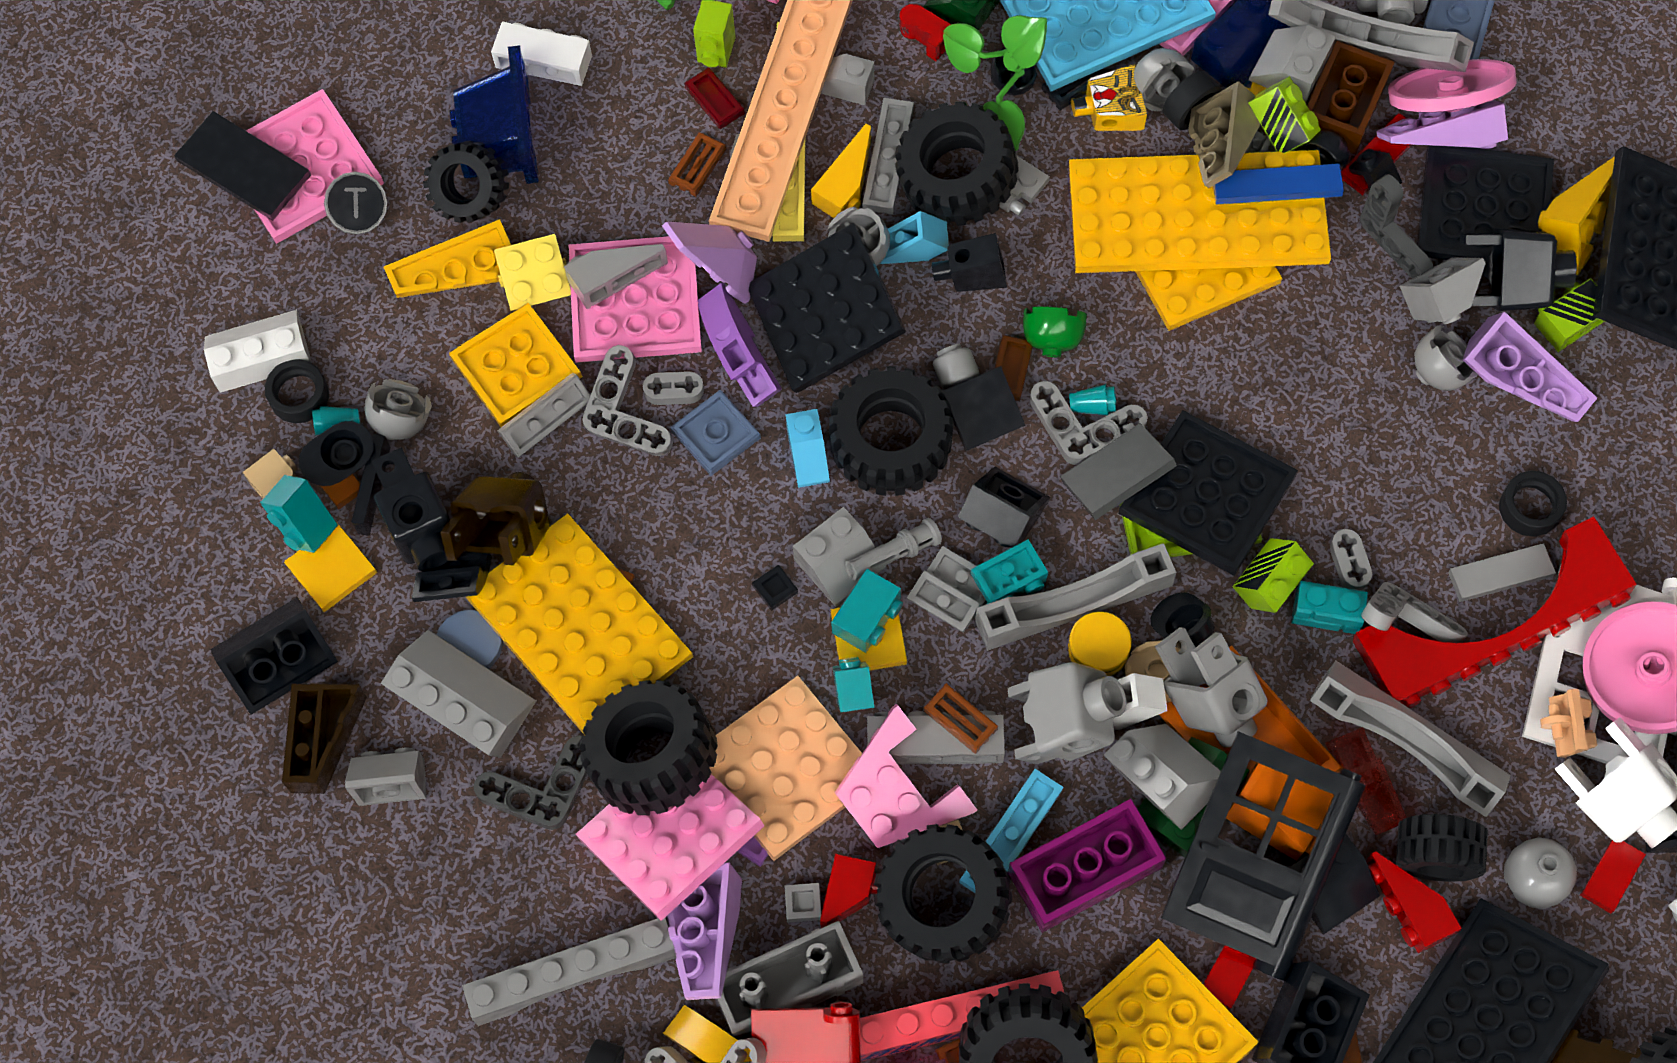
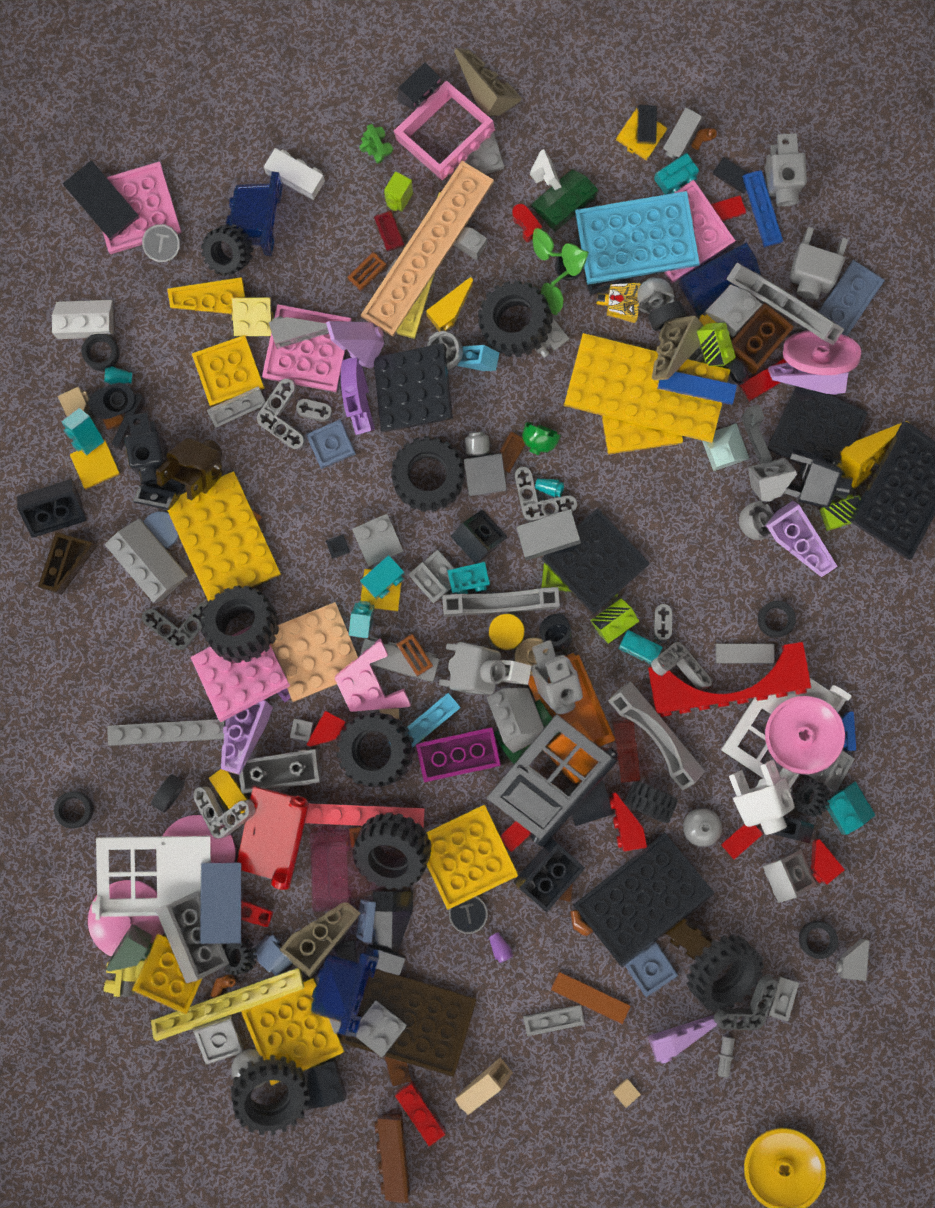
camera: 15 degrees right, 15 degrees up
(386, 777) = (96, 596): light grey slope -> none
(396, 409) = (153, 381): light grey cylinder -> none
(807, 448) = (378, 470): medium azure slope -> none
(882, 176) = (487, 281): light grey plate -> none
(905, 544) = (417, 543): light grey pin -> none
(973, 265) = (506, 384): black torso -> none
(1352, 271) = (726, 448): none -> light aqua slope
(1373, 166) = (761, 391): black bracket -> none
(1567, 723) = (745, 752): light nougat hips -> none

